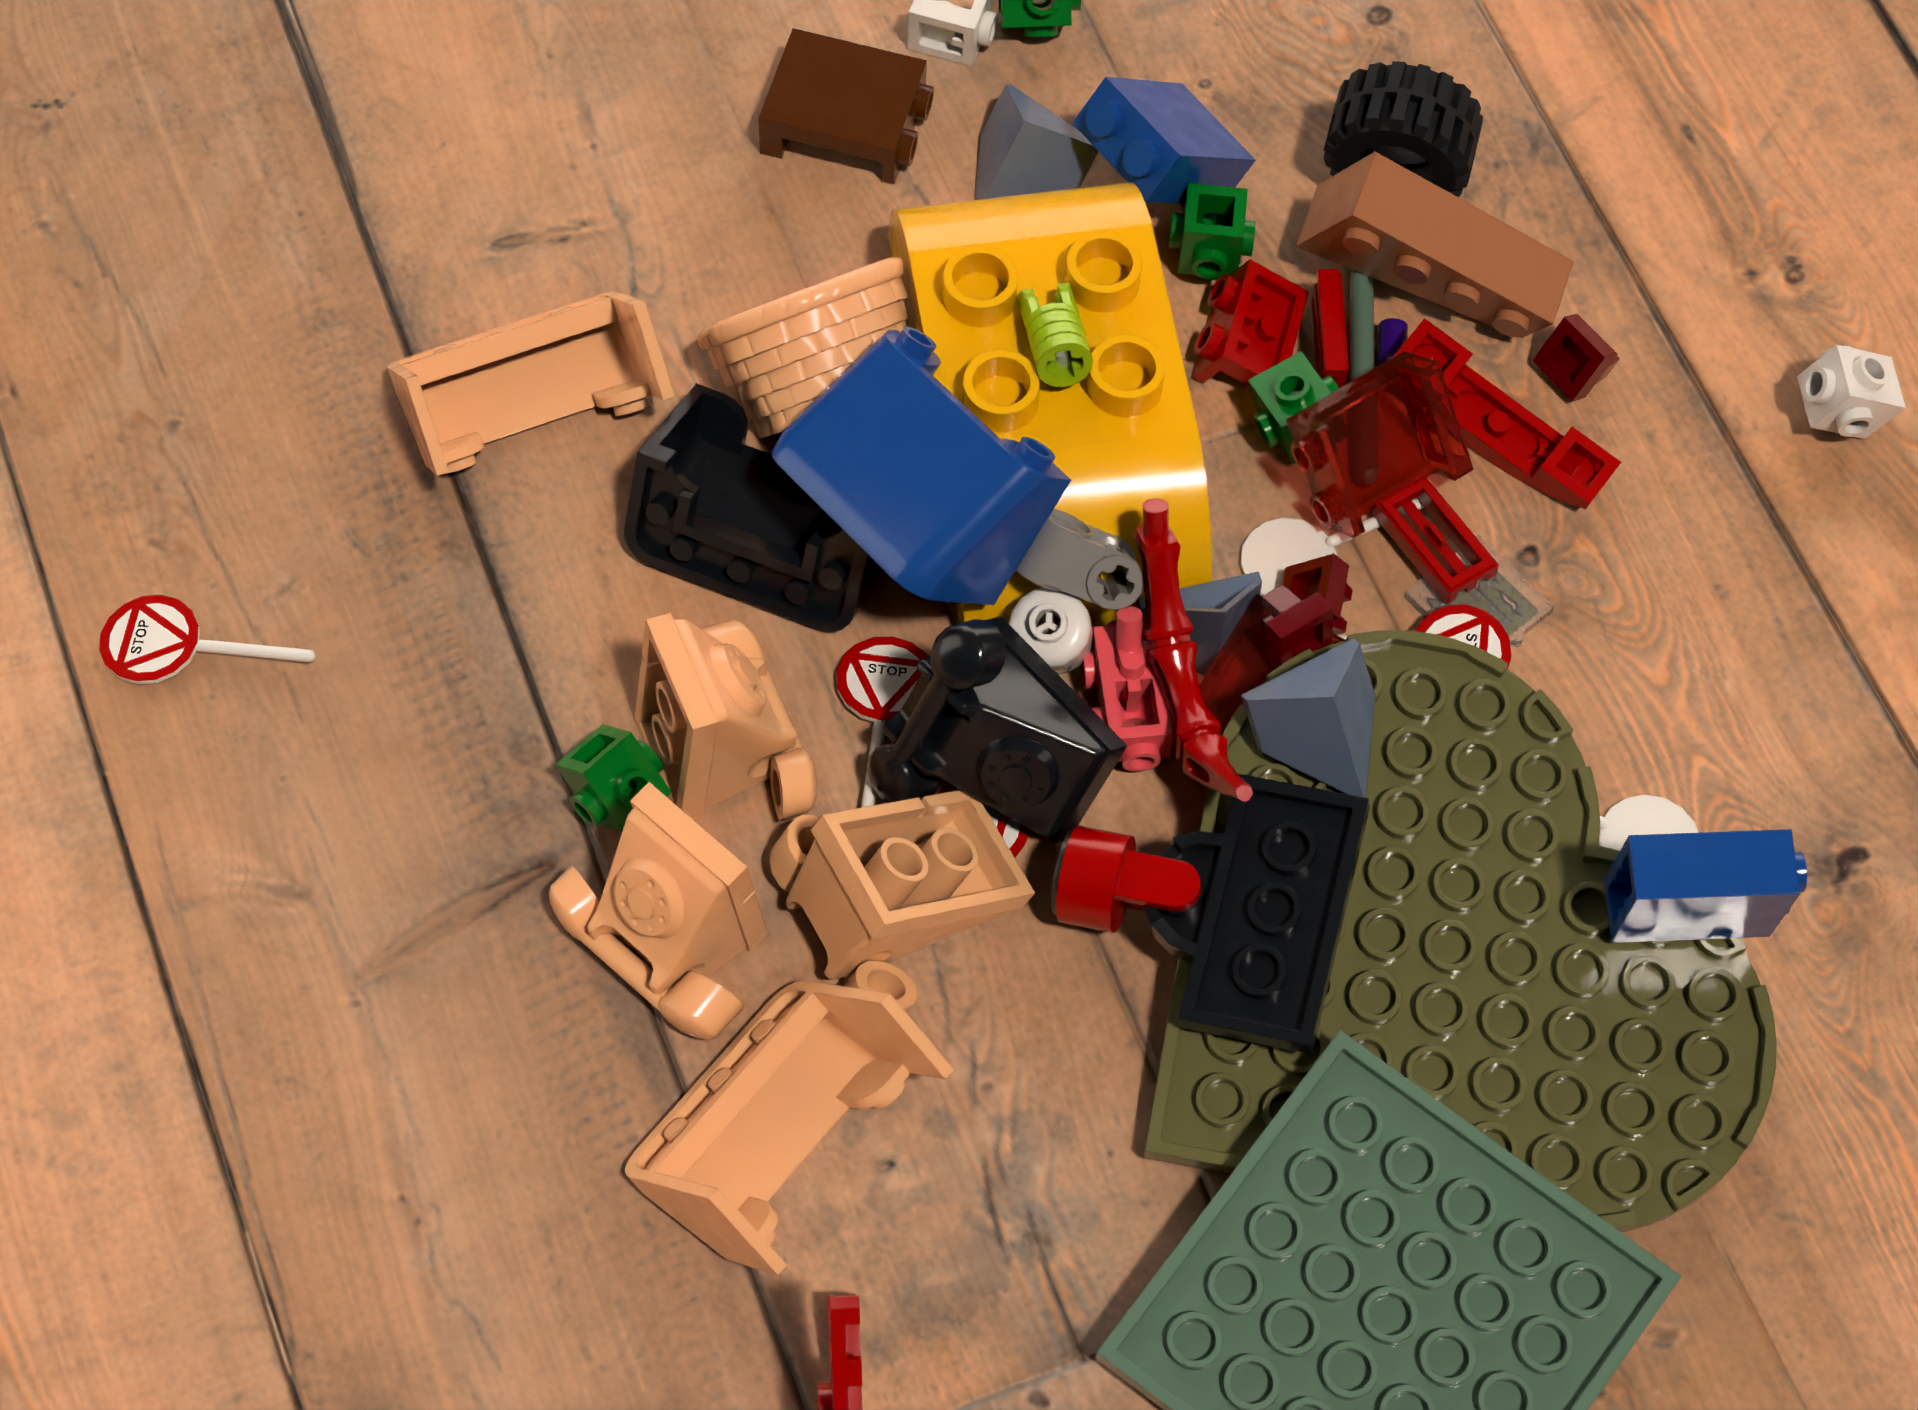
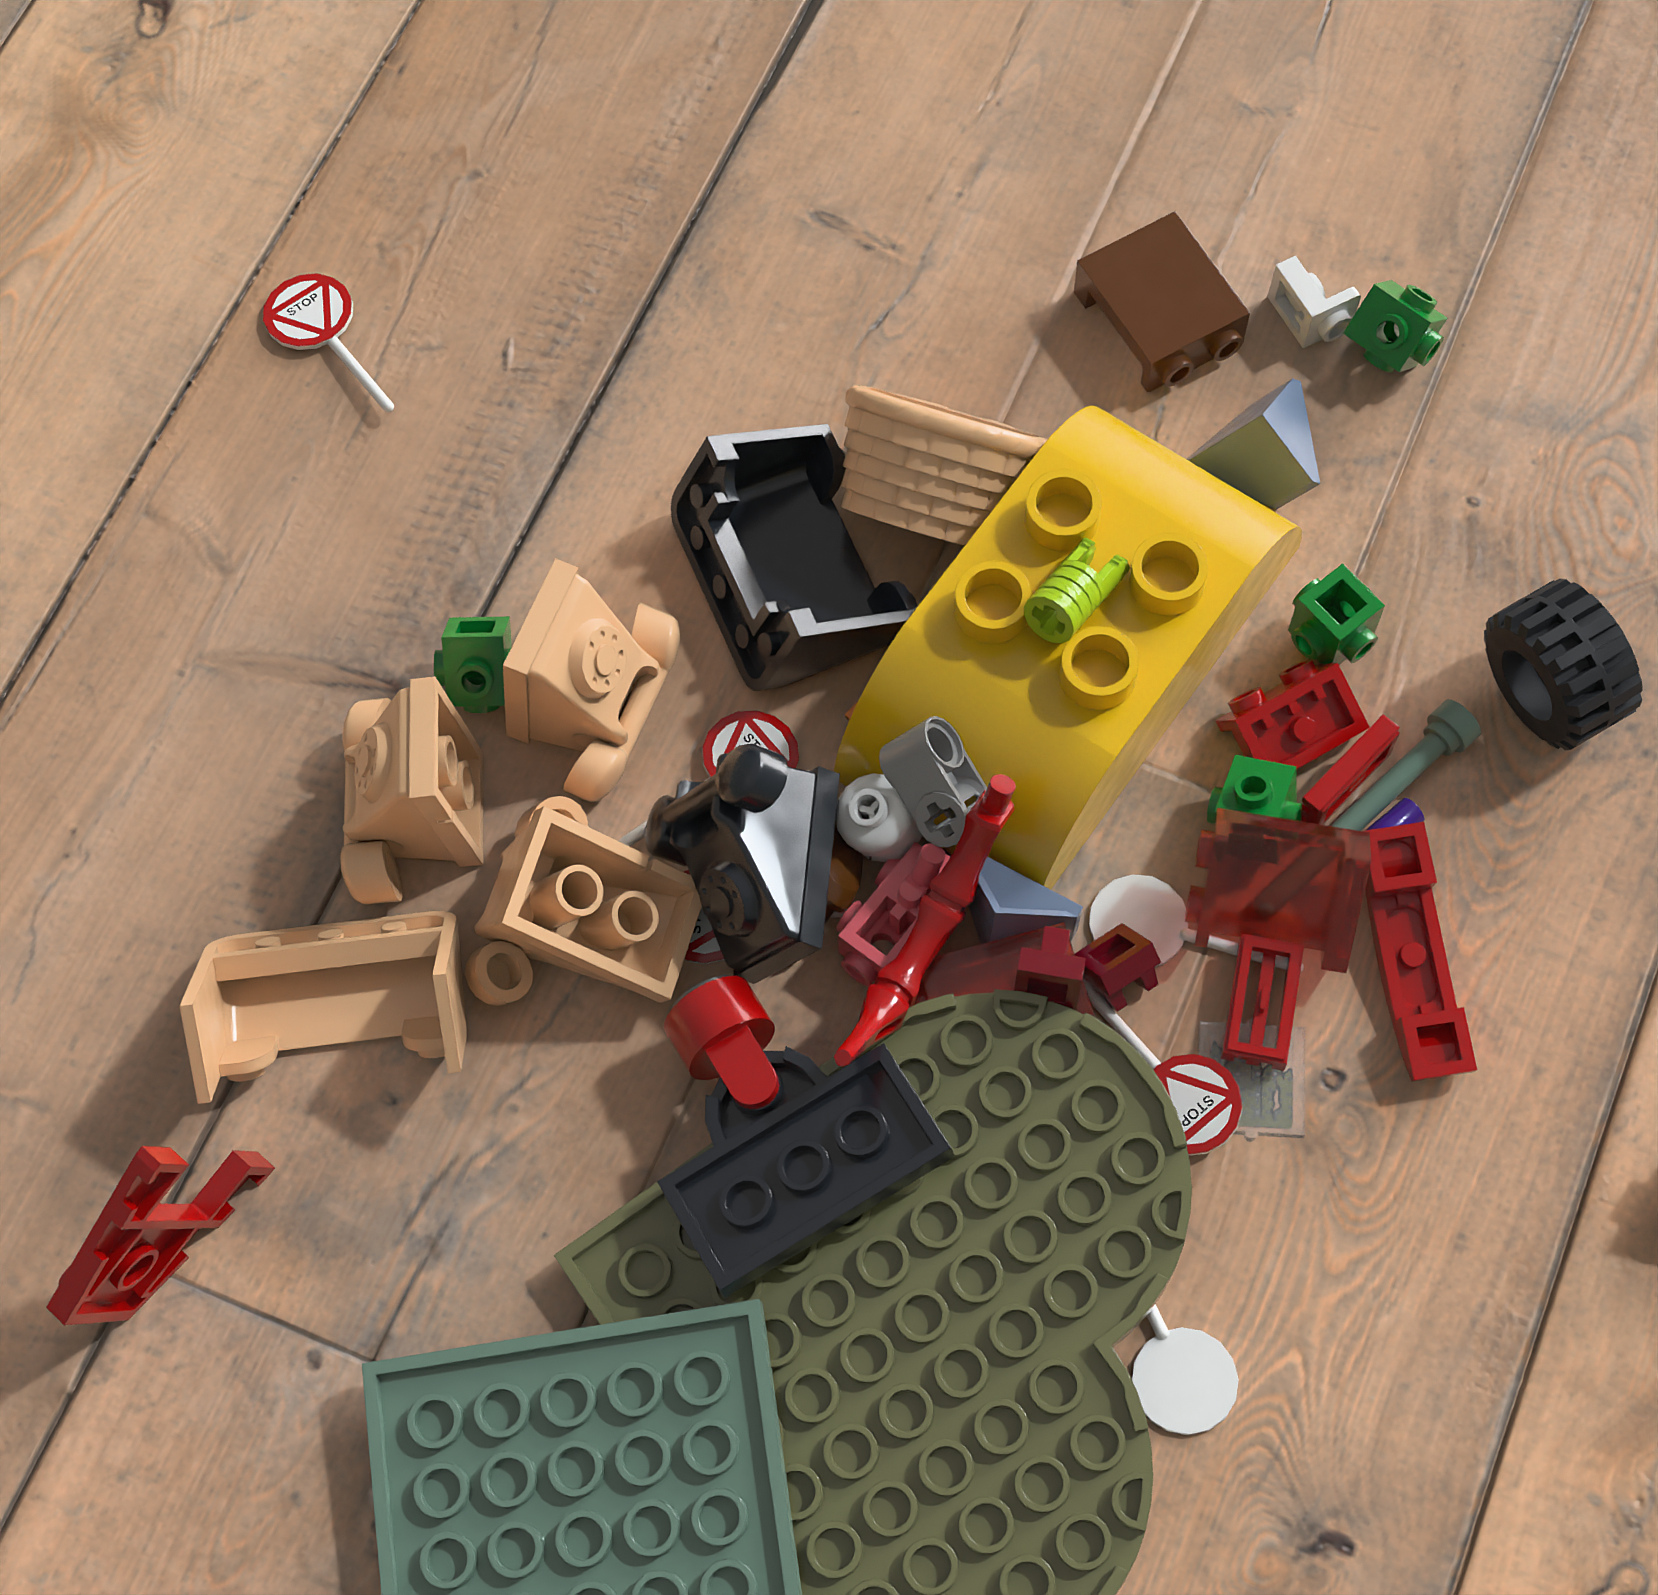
camera: 50 degrees right, 5 degrees up
(529, 375) = (712, 317): light nougat windscreen -> none
(921, 474) = (855, 618): blue windscreen -> none
(1161, 138) = (1364, 512): blue brick -> none
(1319, 718) = (991, 1056): sand blue slope -> none
(1434, 246) = (1495, 778): nougat wedge -> none
(1575, 357) = (1533, 957): dark red tile -> none
(1703, 885) = (1132, 1450): blue brick -> none

